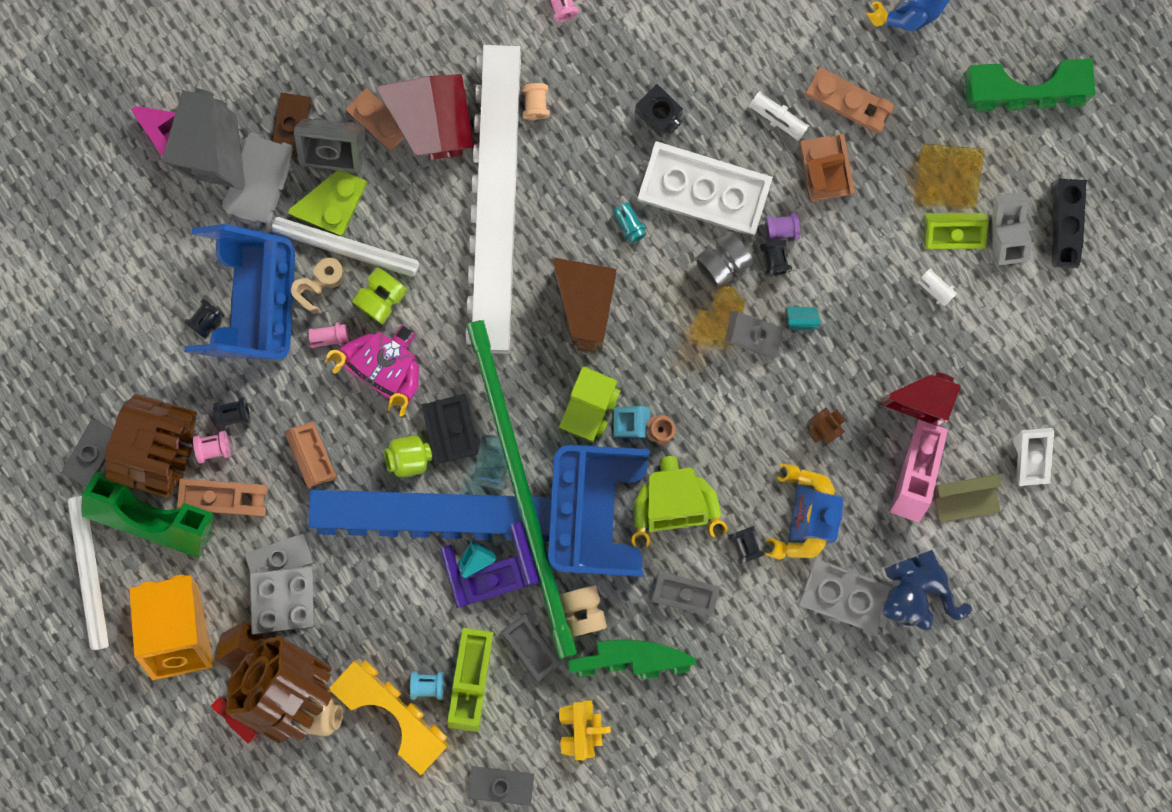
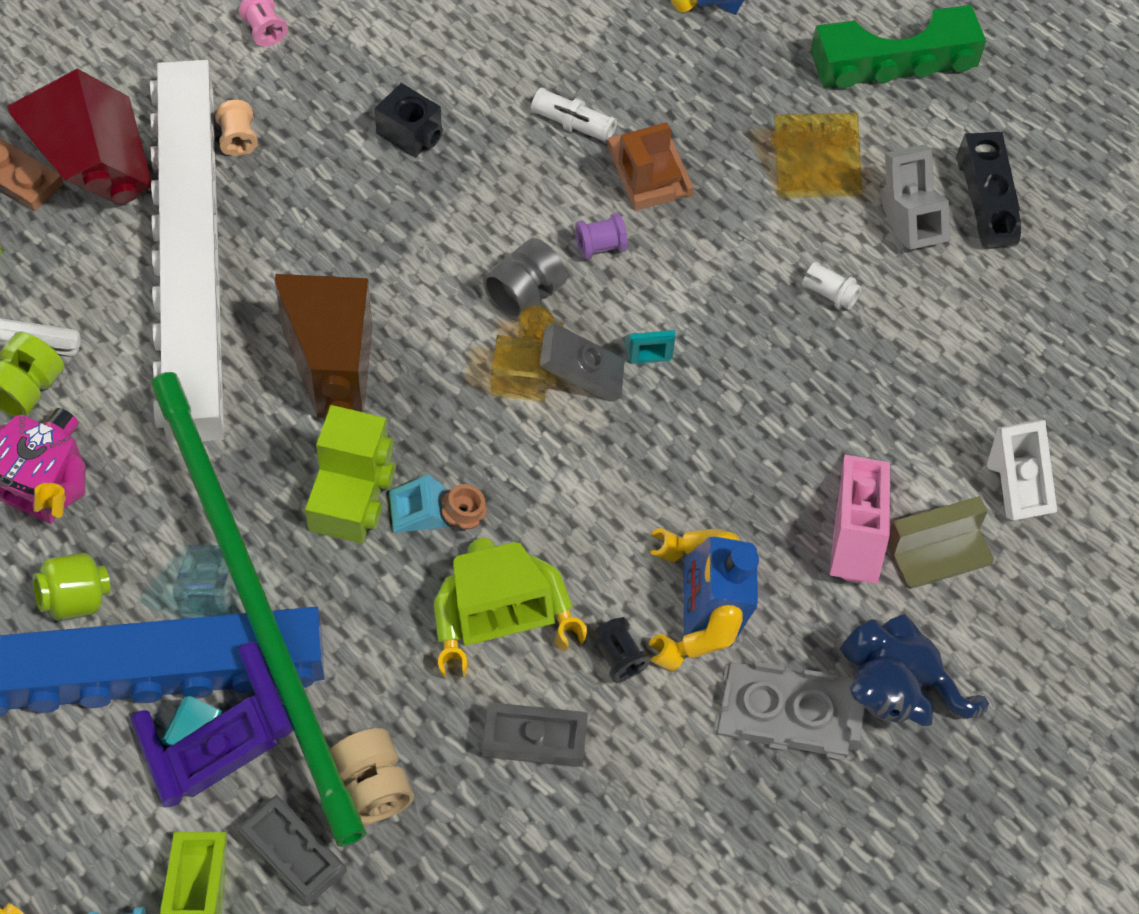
camera: 10 degrees left, 25 degrees down
(450, 429) = (137, 543): black plate -> none
(585, 509) = (356, 617): blue windscreen -> none
(630, 224) = (391, 261): teal pin -> none
(645, 656) = (480, 833): green slope -> none
(704, 189) = (483, 203): white plate -> none
(775, 258) = (598, 273): black bush -> none
(826, 426) = (710, 470): reddish brown gear -> none
(849, 100) = (665, 91): nougat plate -> none
(926, 399) = (842, 410): dark red slope -> none
(956, 230) = (842, 221): lime slope -> none

